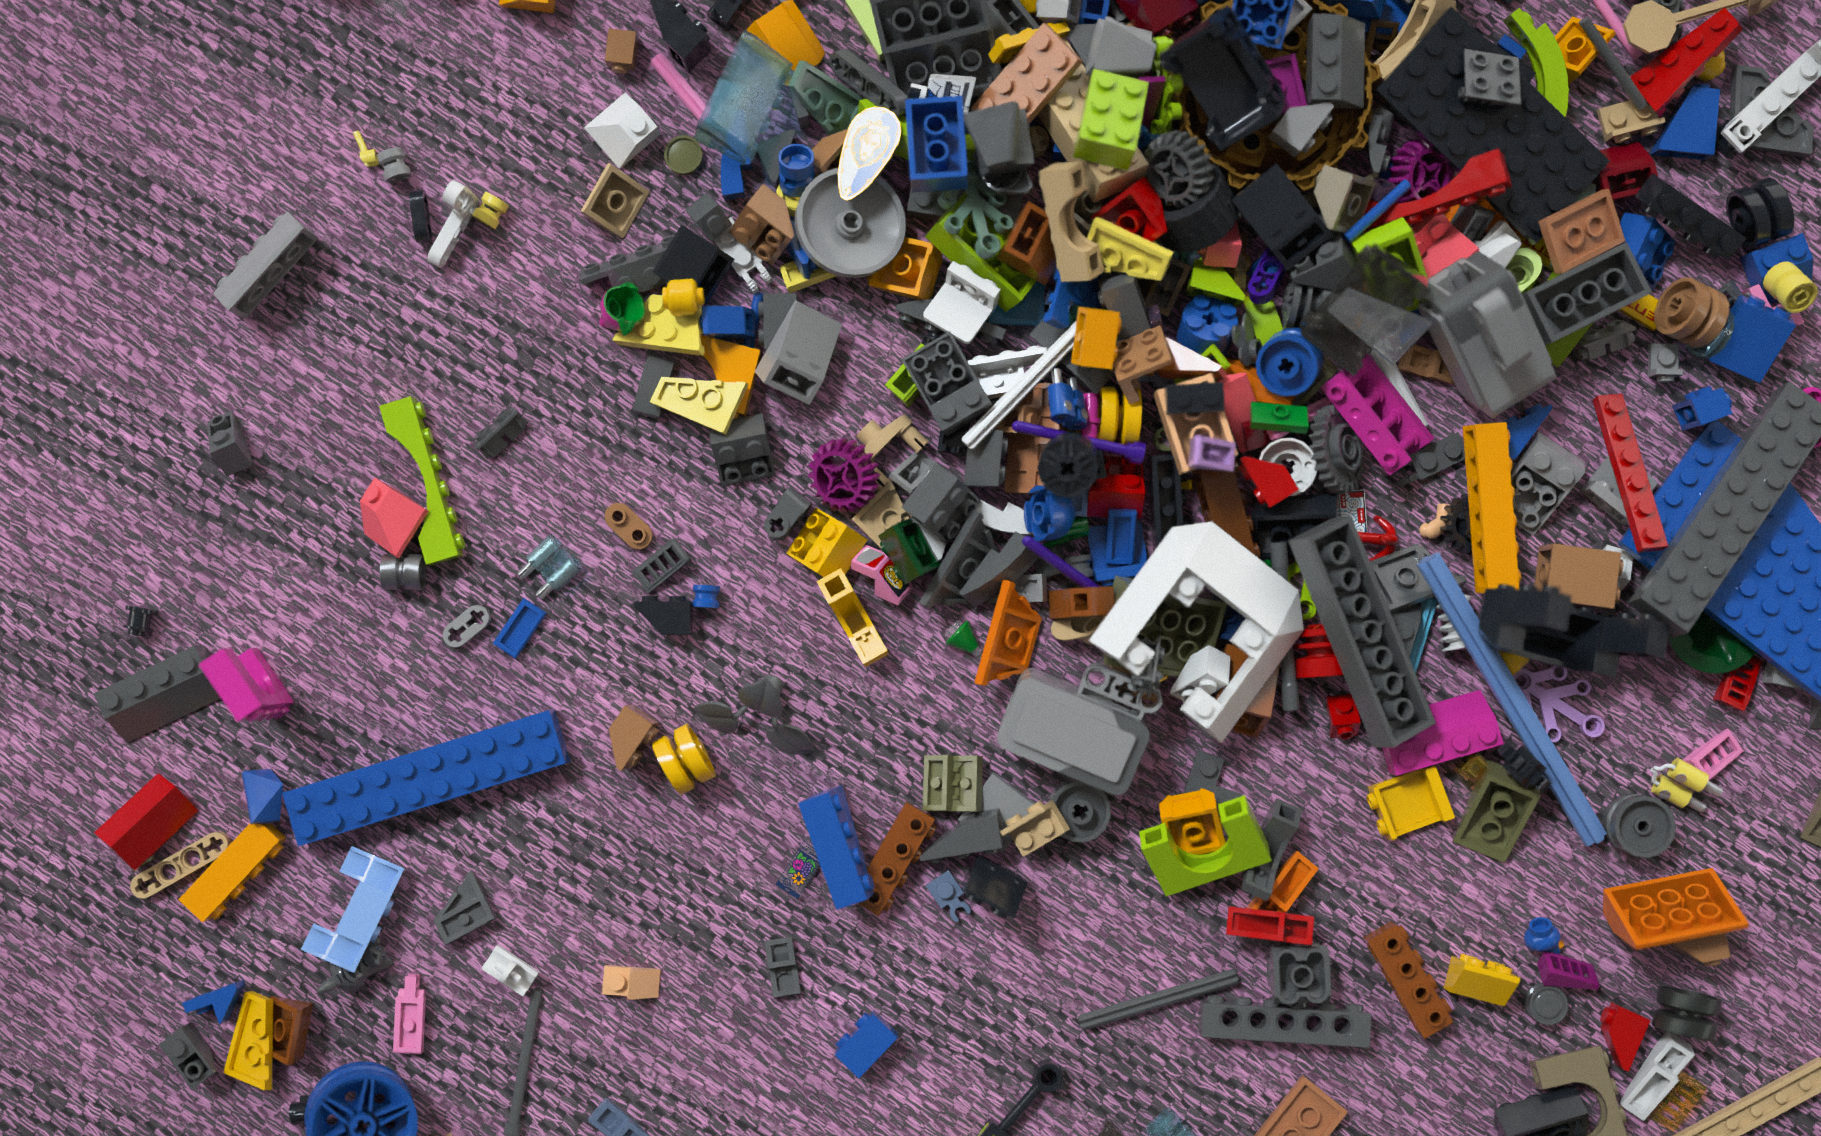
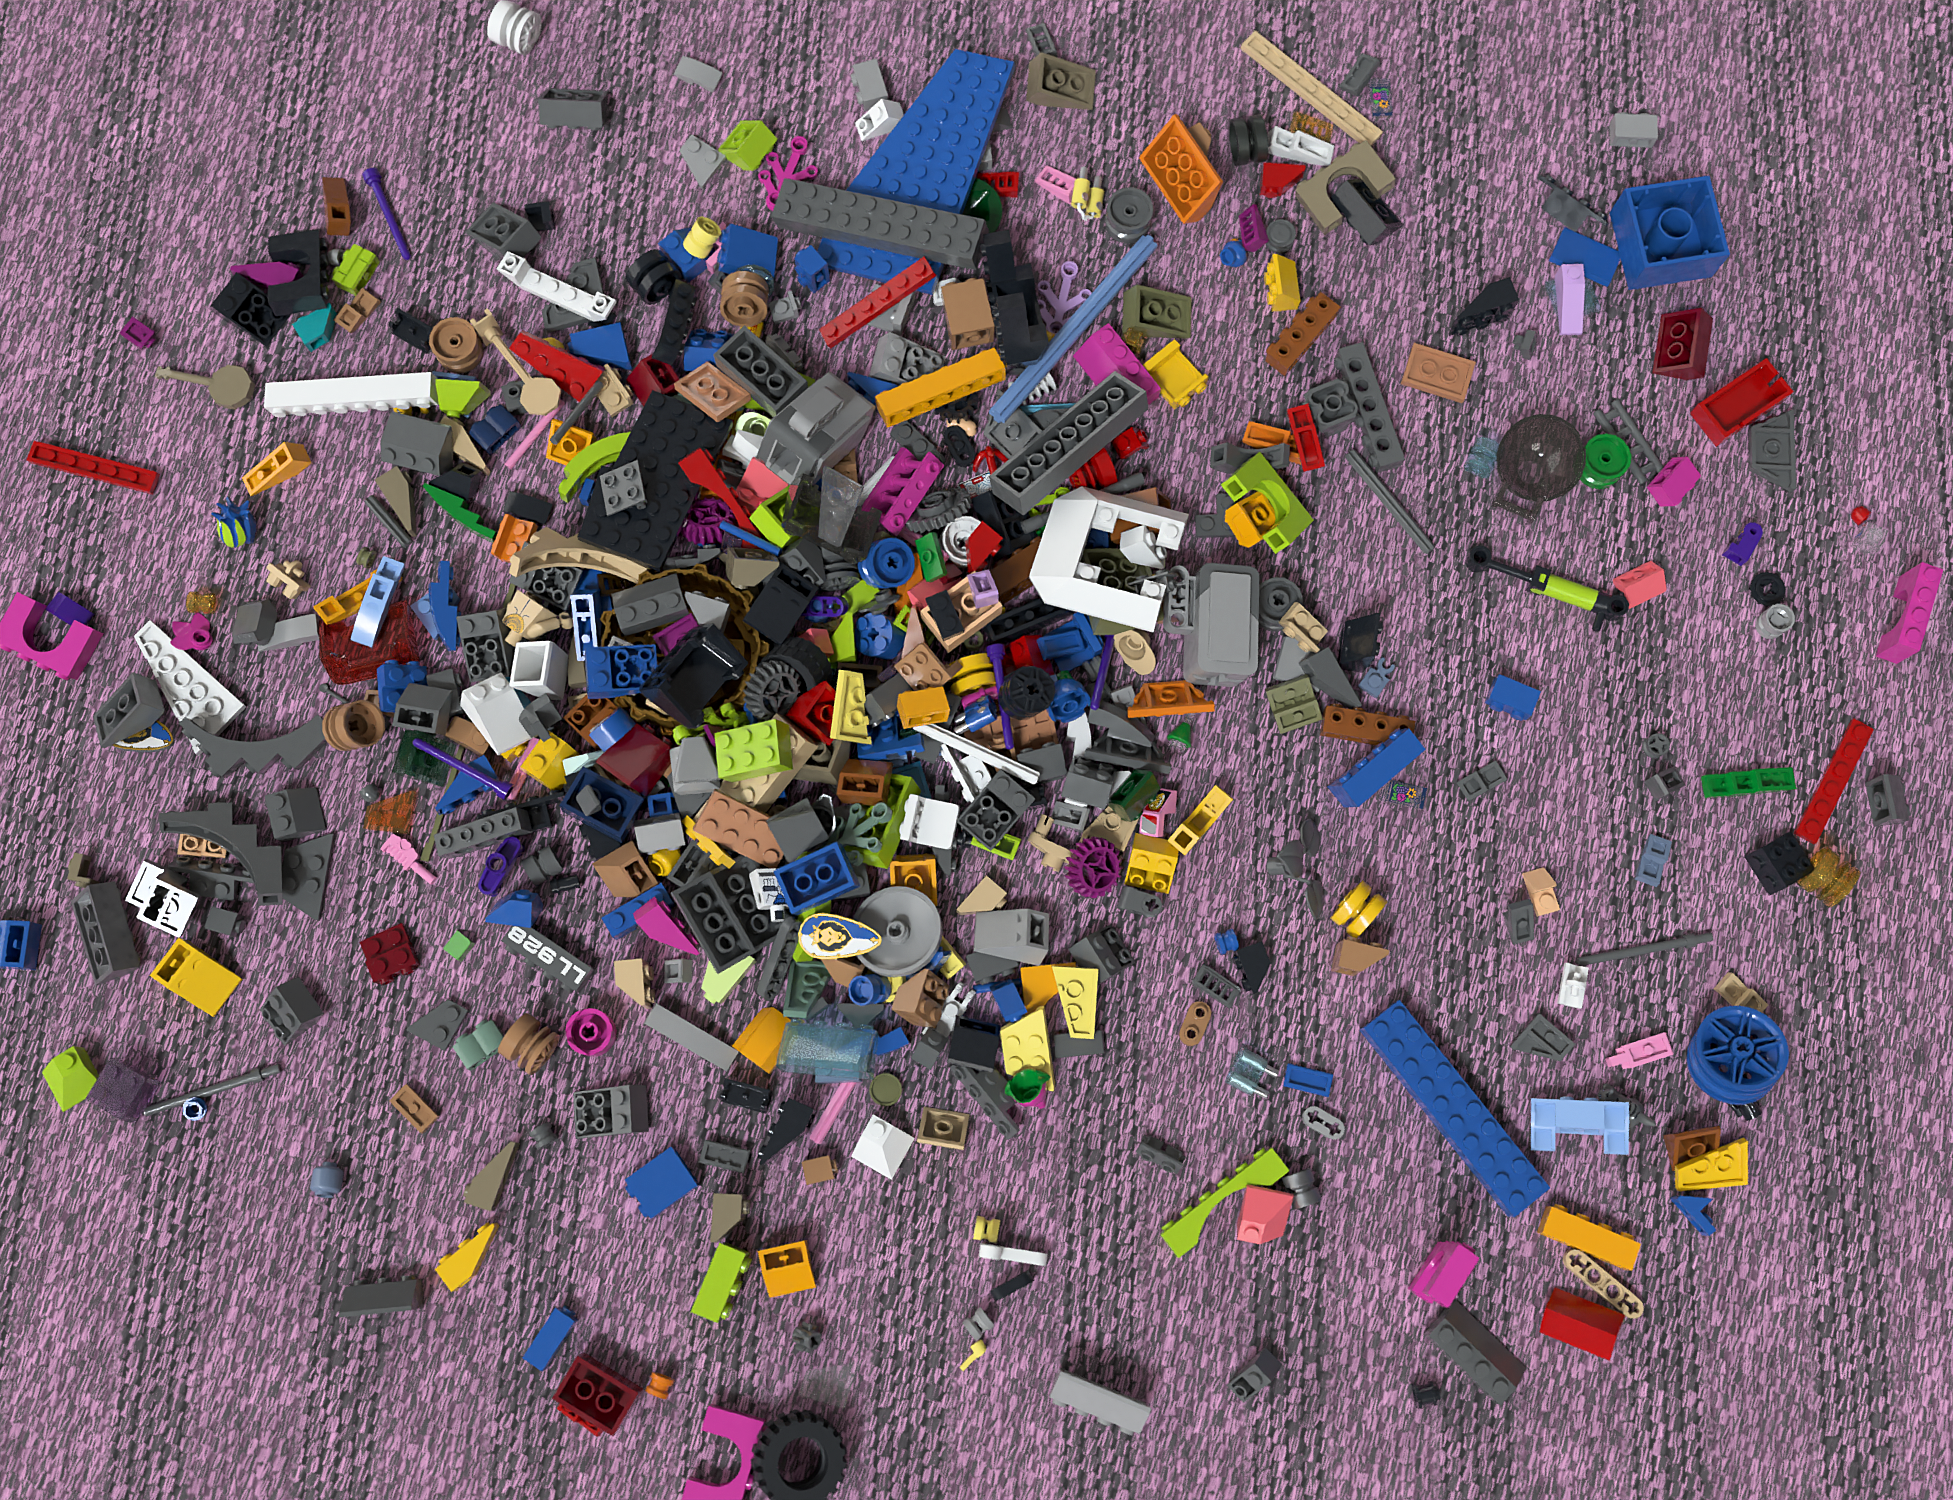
camera: 115 degrees left, 10 degrees down
(189, 1054) = (1746, 1215): dark grey slope -> none
(263, 795) = (1521, 1234): blue slope -> none
(604, 941) = (1520, 921): none -> dark grey slope
(682, 297) = (1004, 1038): yellow head -> none
(855, 339) = (983, 898): none -> tan slope
(1075, 254) = (865, 743): tan arch -> none
(1080, 602) = (1124, 654): dark orange slope -> none
(1411, 508) = (960, 447): none -> black plate
(1524, 766) = (1120, 302): black gear -> none

